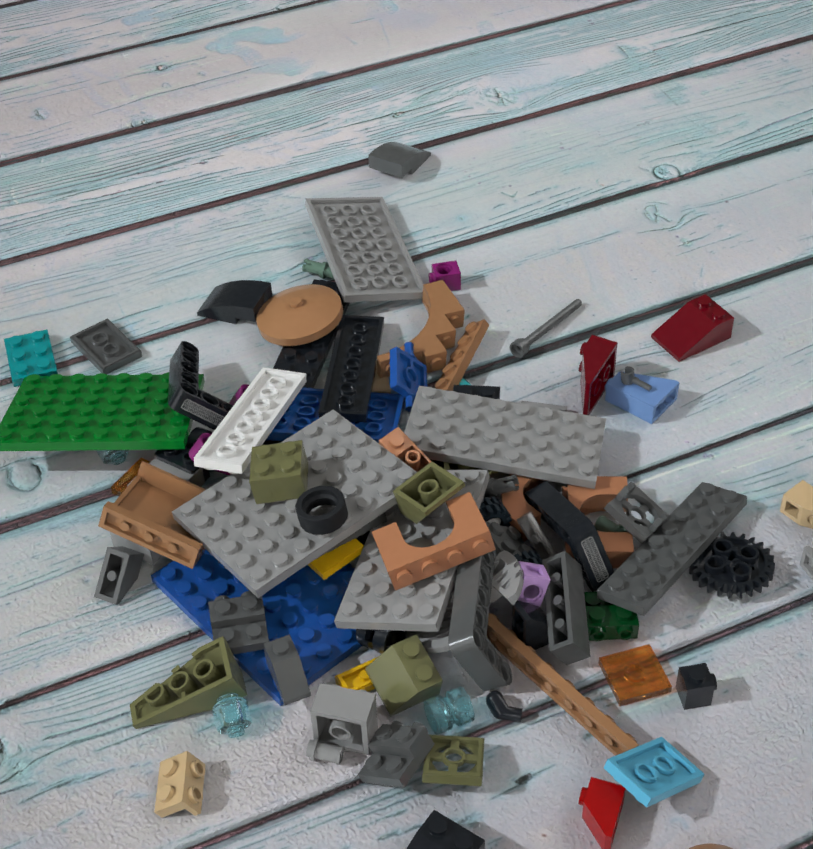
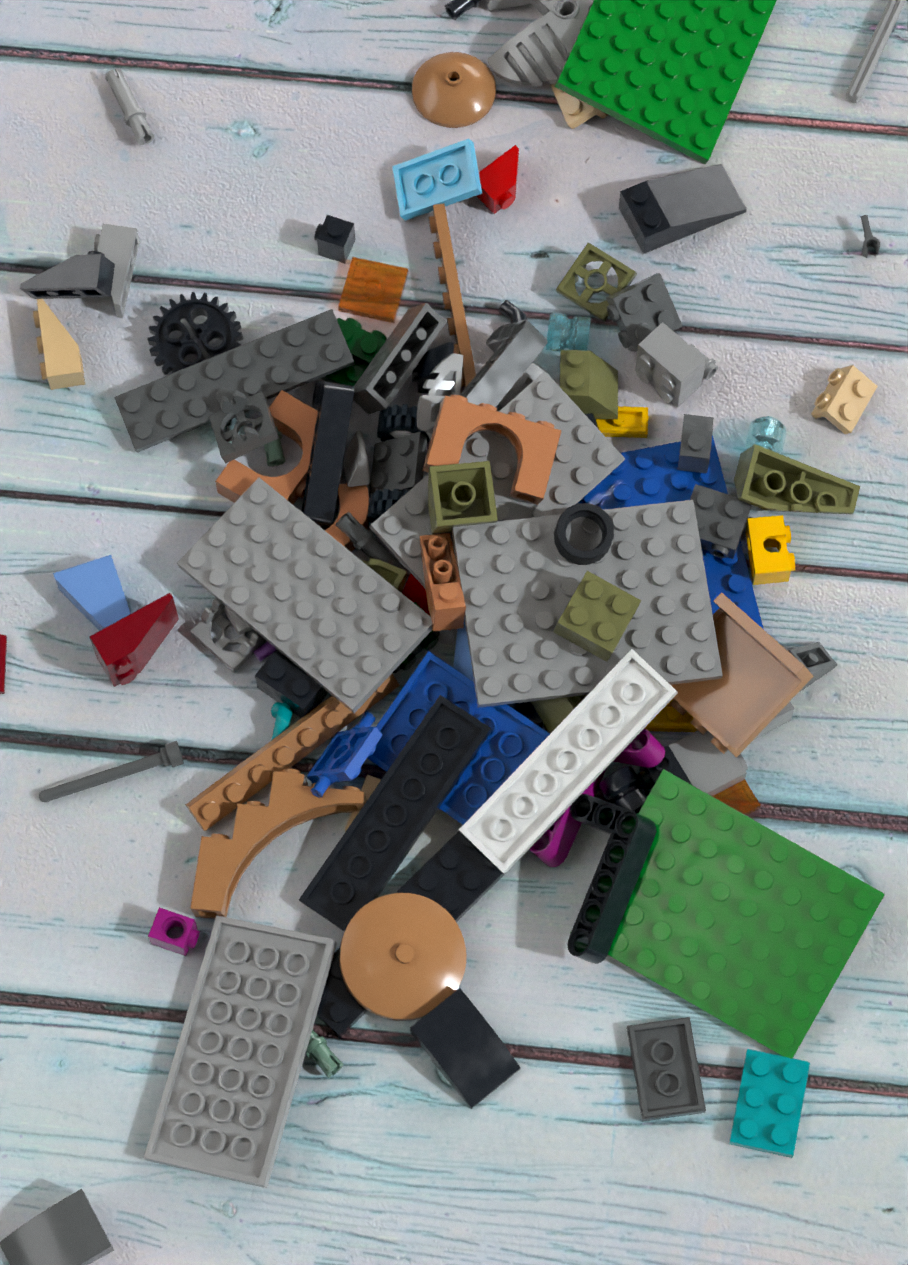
camera: 150 degrees left, 25 degrees up
(183, 633) = (764, 565): none -> yellow brick
(535, 583) = (409, 388): lavender brick -> none
(629, 378) = (101, 595): dark grey hand -> none

